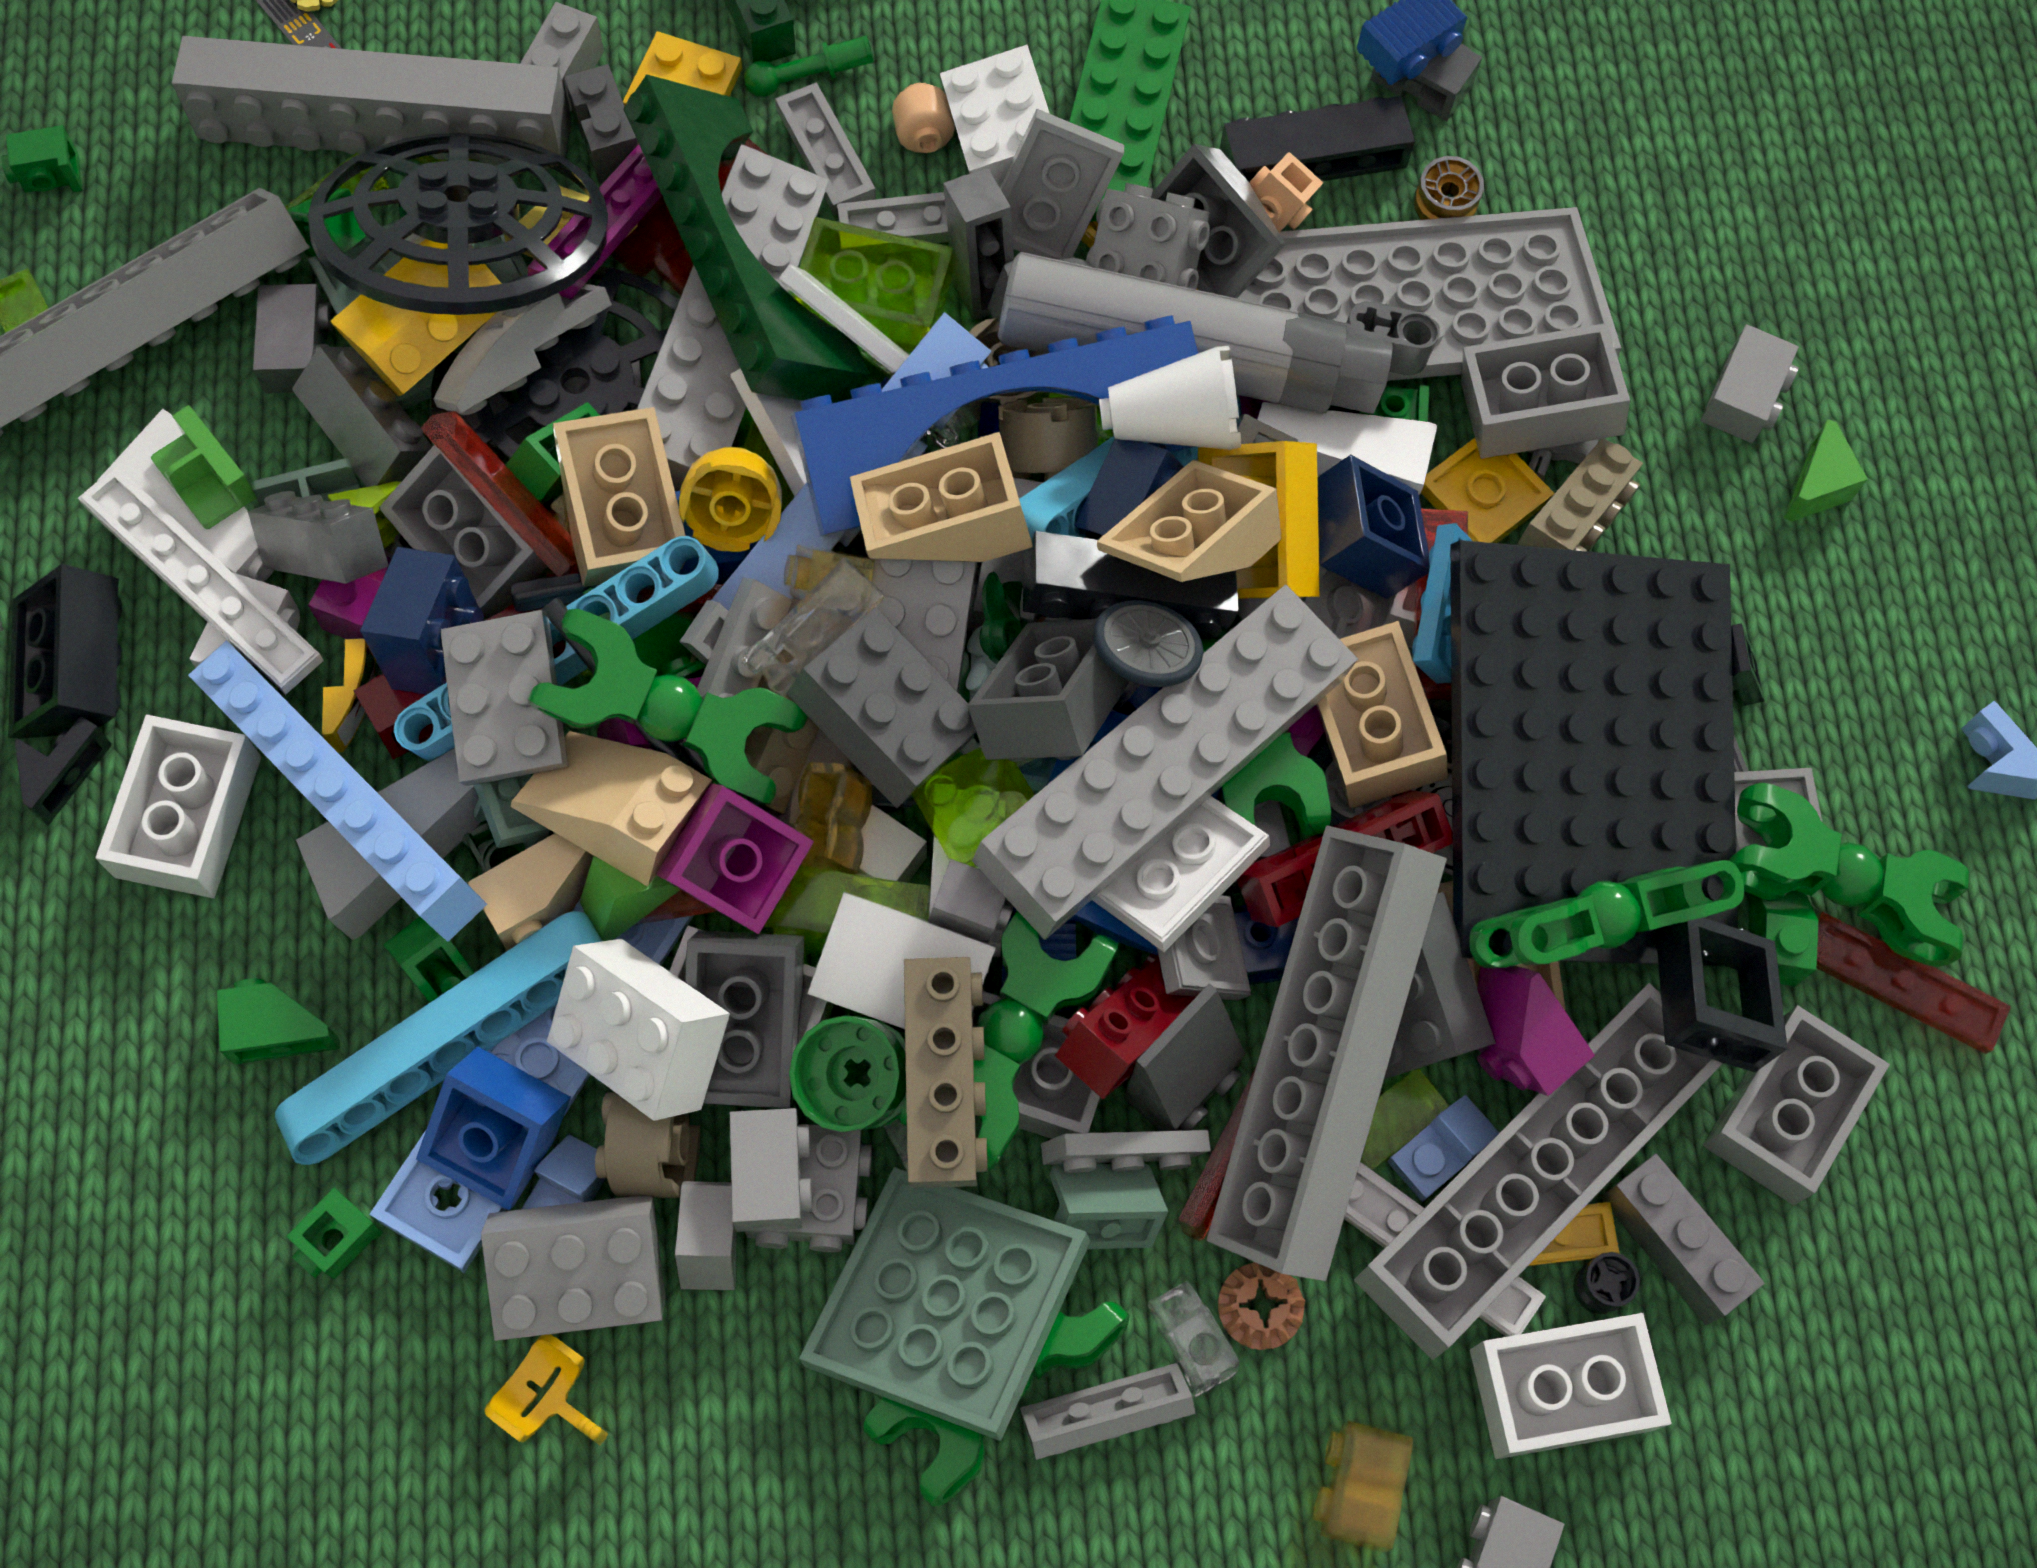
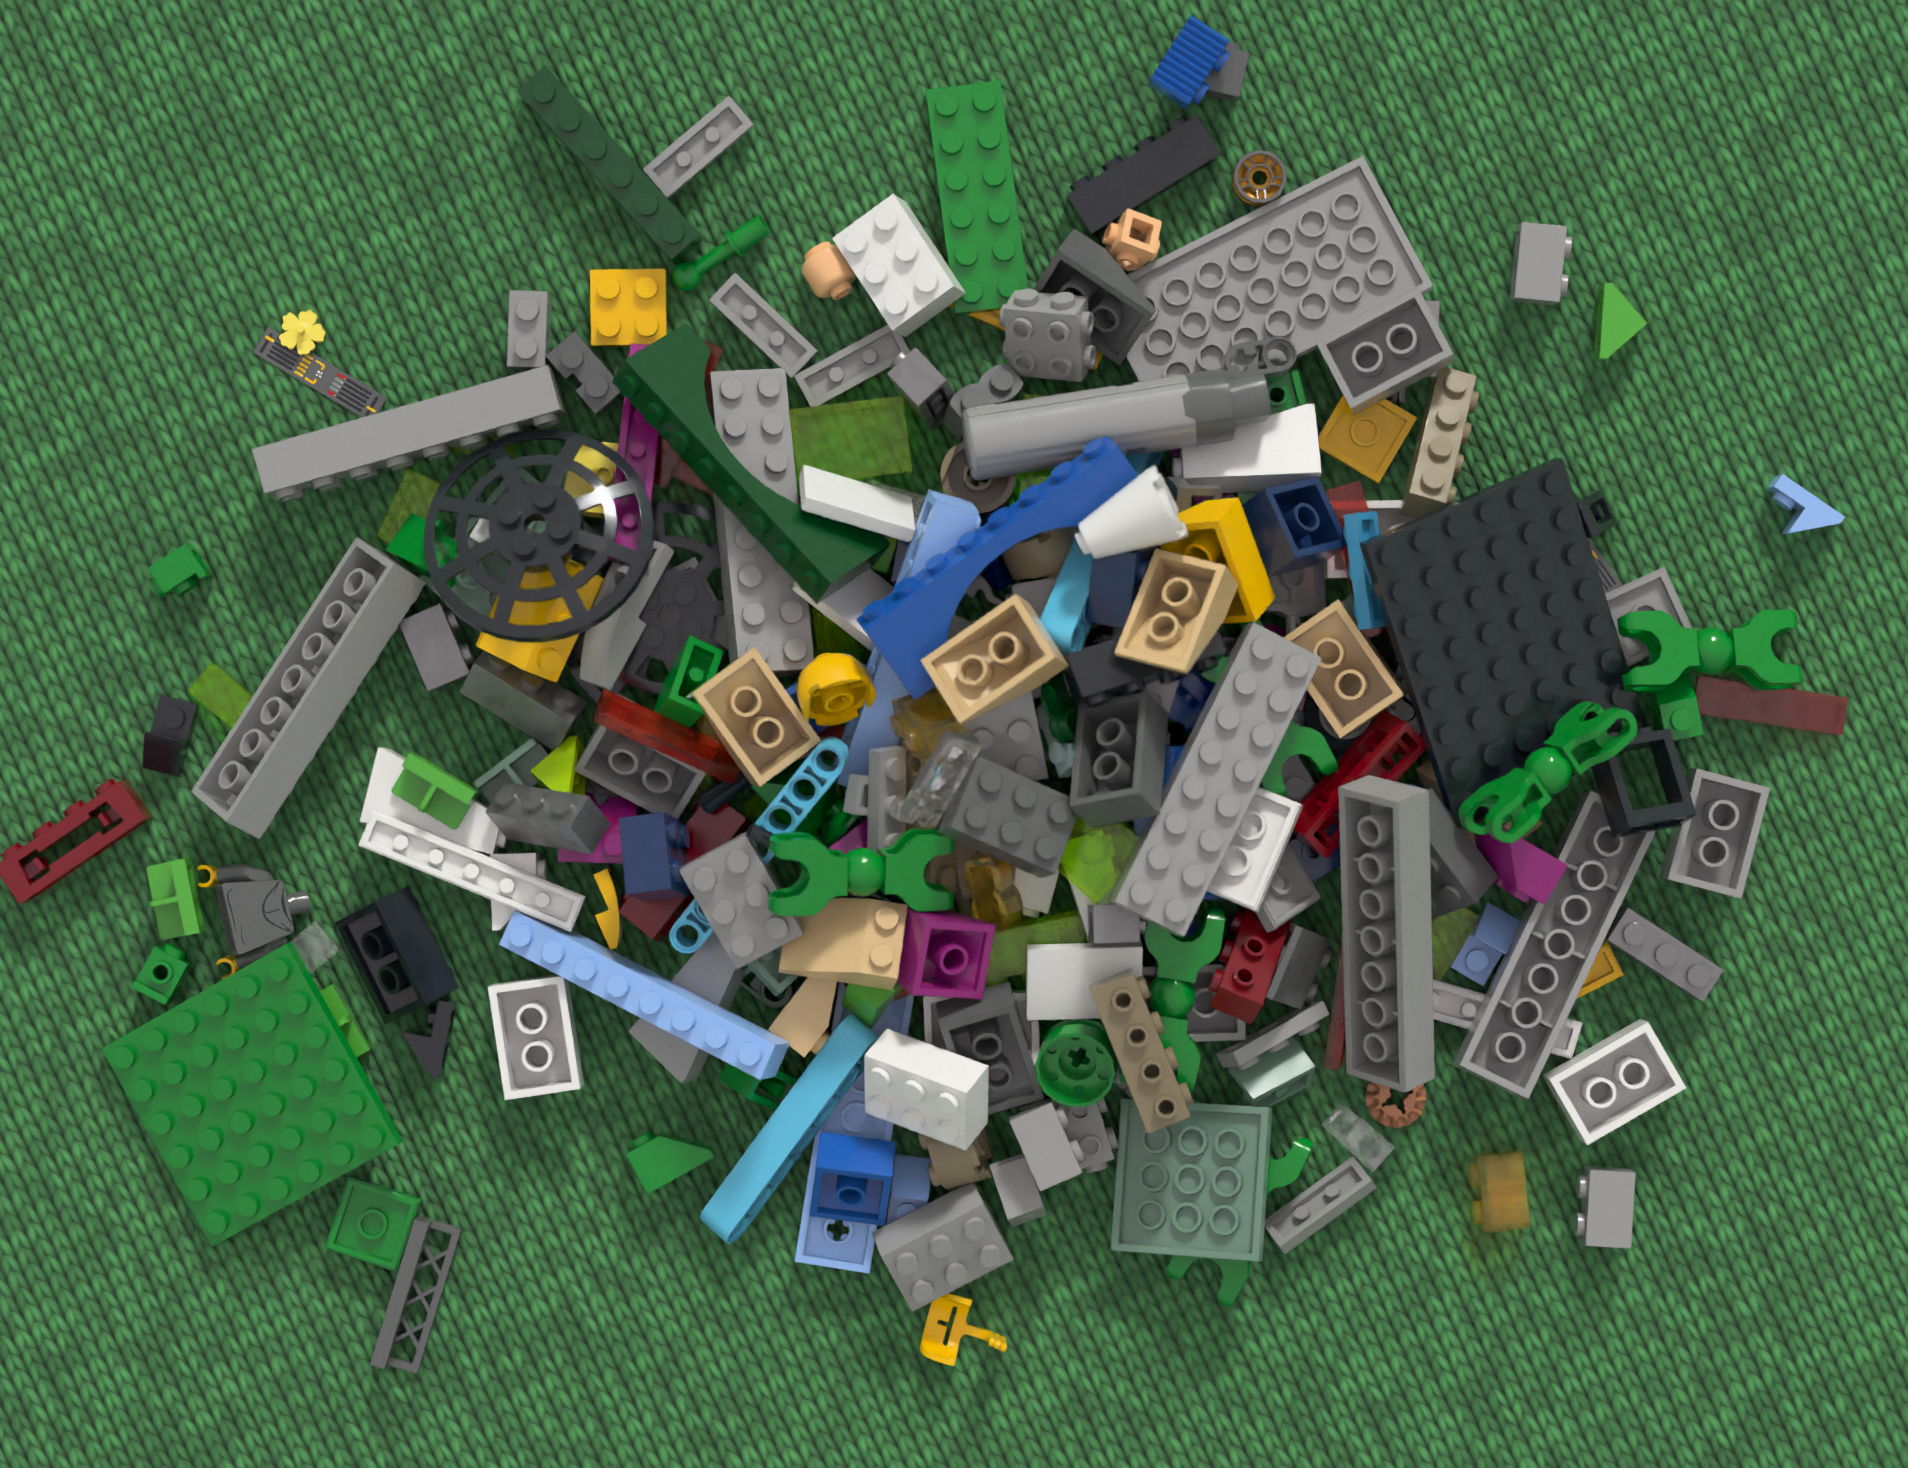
camera: 15 degrees left, 20 degrees up
(328, 1217) = (772, 1297): green brick -> none
(1057, 184) = (961, 319): light grey plate -> none
(1147, 643) = (1175, 712): dark grey wheel -> none
(1616, 1277) = (1624, 1005): black wheel -> none

